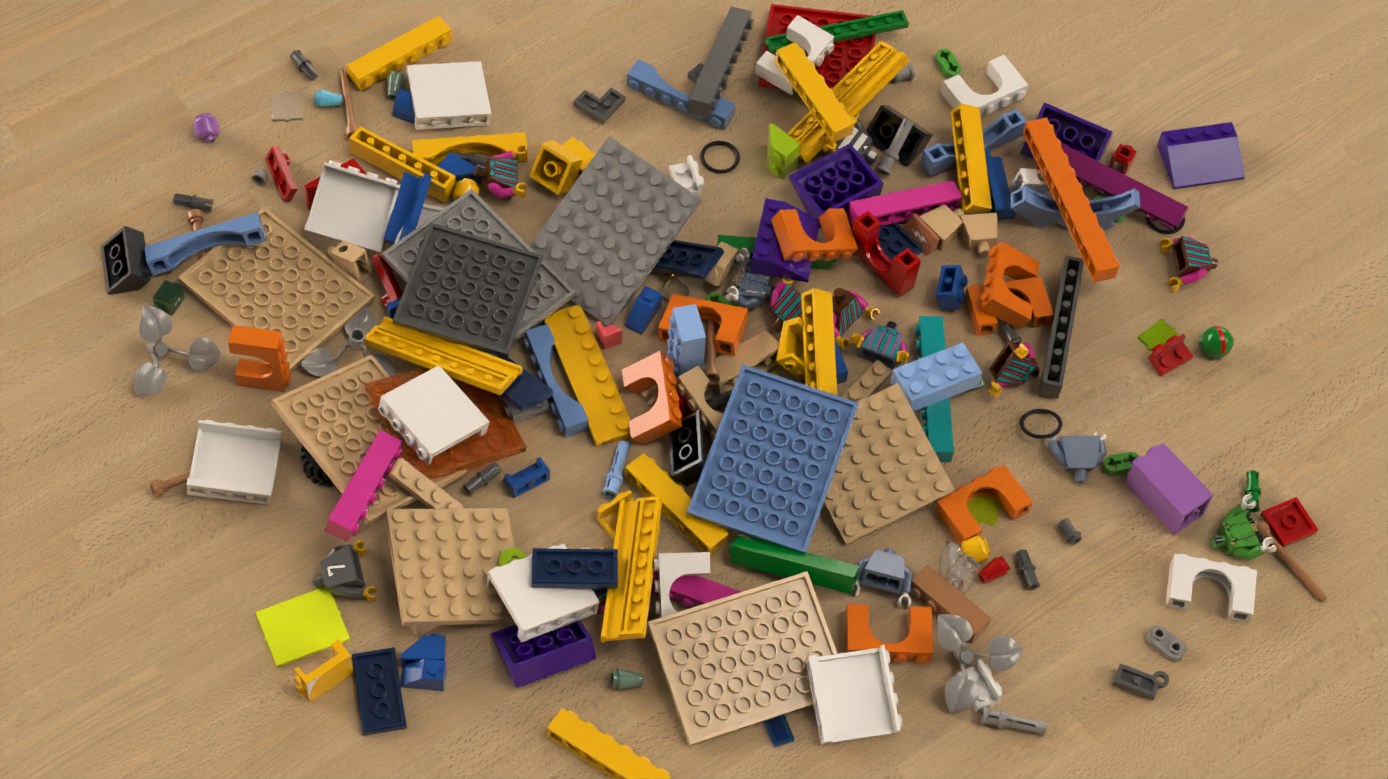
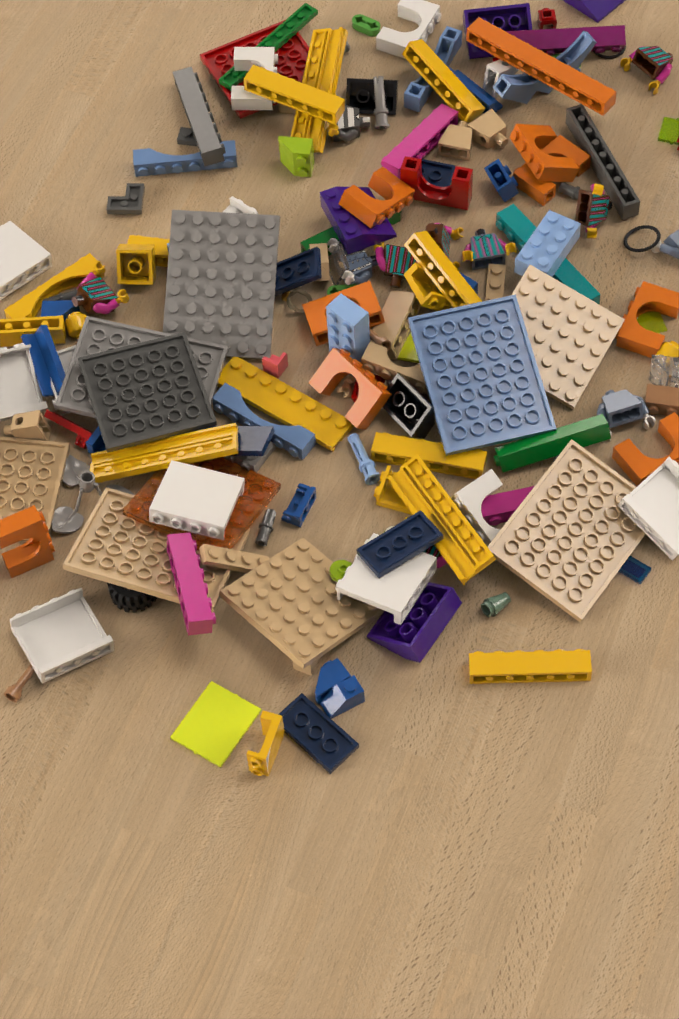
camera: 25 degrees left, 0 degrees up
(343, 572) = (218, 662): dark grey torso -> none
(644, 310) = (287, 330): blue slope -> none
(718, 170) = (250, 175): black tyre -> none
(719, 400) = (404, 353): dark grey axle -> none
(835, 182) = (357, 153): dark purple slope -> none
(922, 234) = (448, 155): nougat slope -> none

